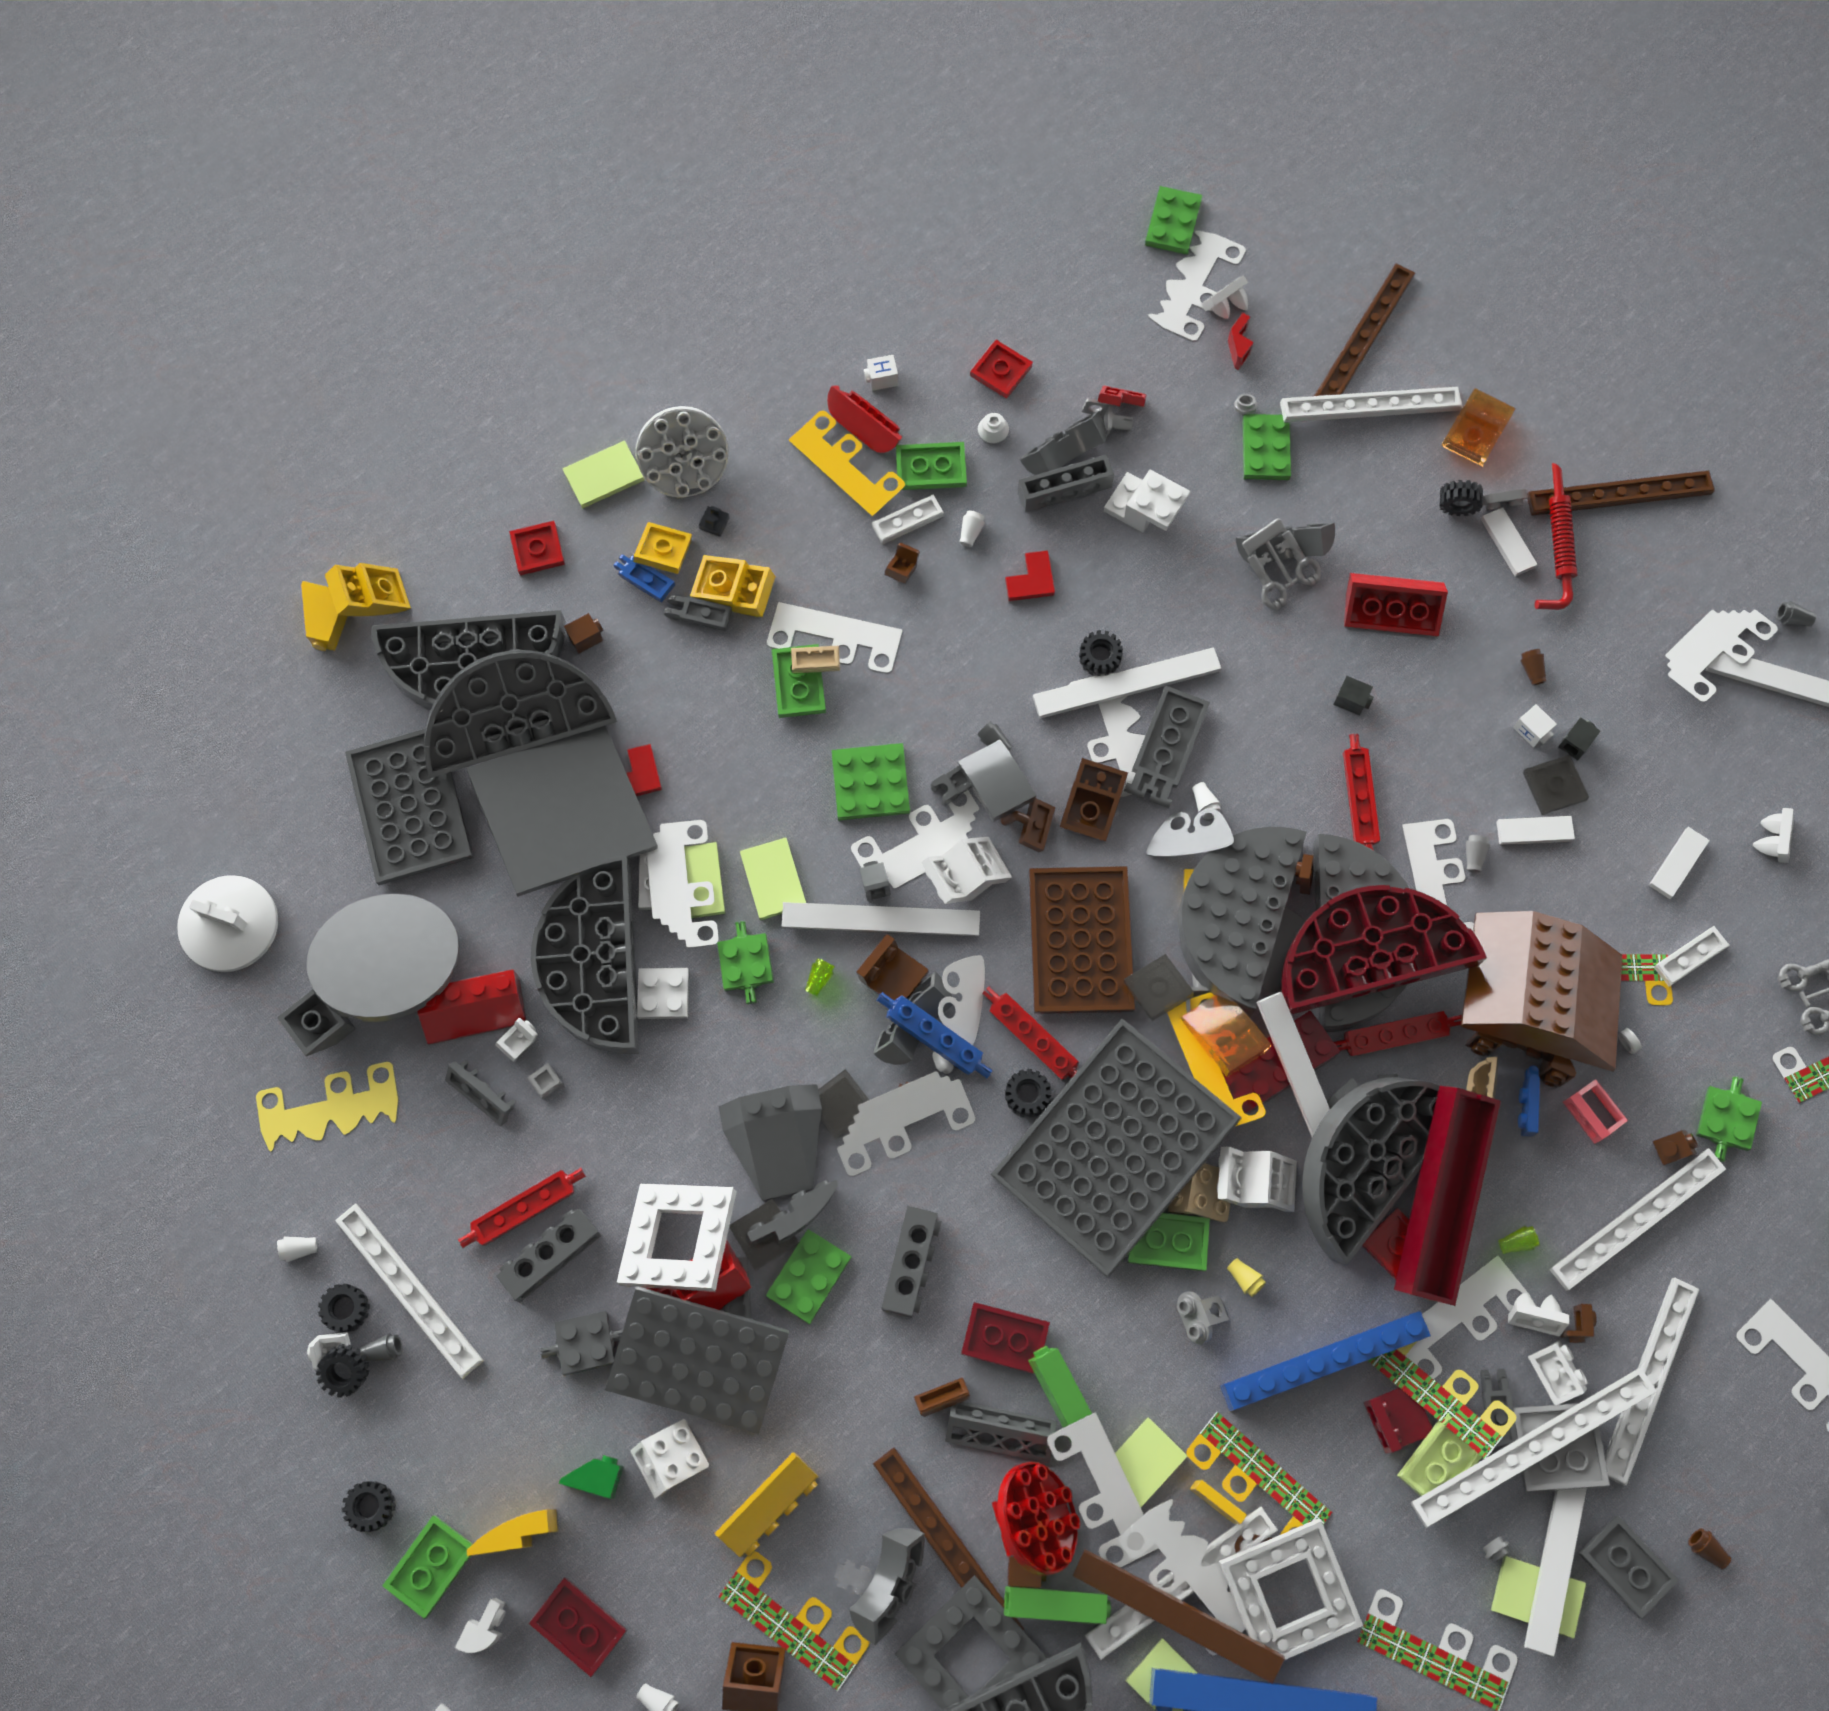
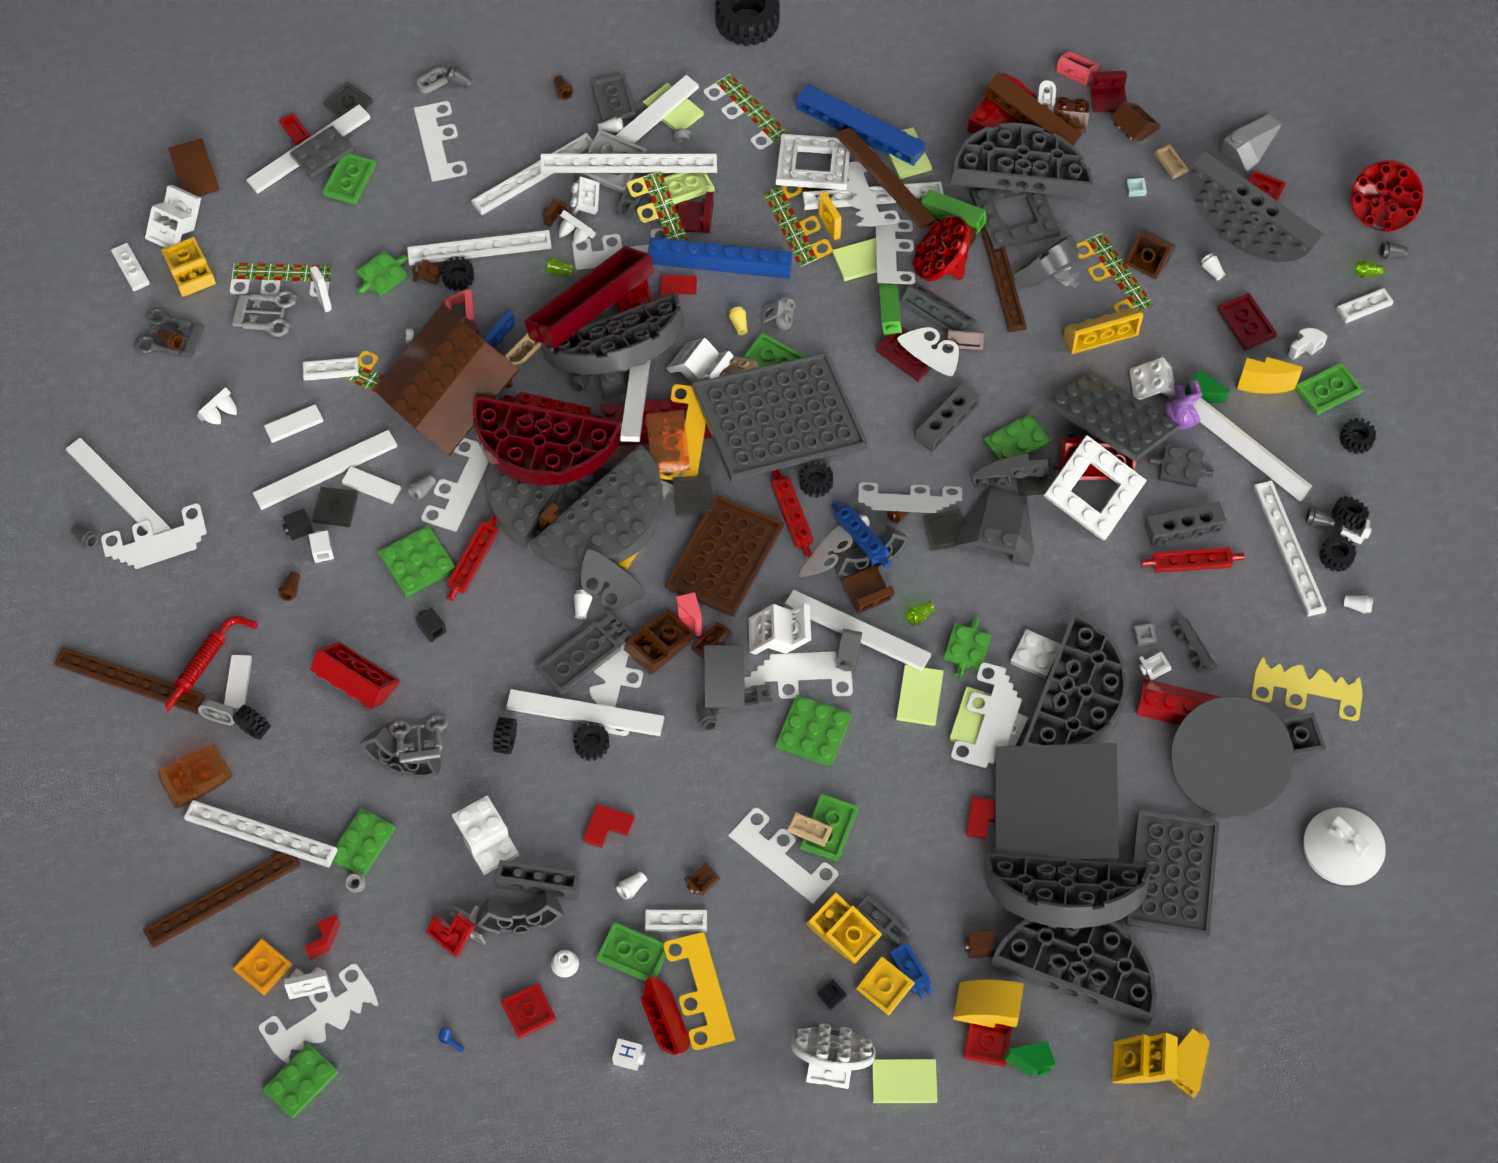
camera: 155 degrees left, 10 degrees down
(484, 543) = (1032, 1058): none -> green slope
(507, 1411) = (1252, 450): none -> white tile
(549, 576) = (989, 1002): none -> yellow slope
(603, 1411) = (1181, 408): none -> medium lavender hair
(966, 1342) = (935, 358): none -> white piece
(1065, 313) = (444, 1037): none -> blue hand
(1075, 836) = (689, 612): none -> coral tile
(1192, 608) = (504, 735): none -> black tyre
(1279, 295) = (262, 967): none -> light orange tile
(1361, 1288) = (677, 284): none -> red tile
(1420, 765) = (417, 561): none -> bright green plate
(1598, 1516) = (612, 125): none -> white cone
(1599, 824) = (324, 469): none -> white tile
(1648, 1154) = (457, 265): none -> black tyre
(1780, 1035) = (321, 289): none -> white tile

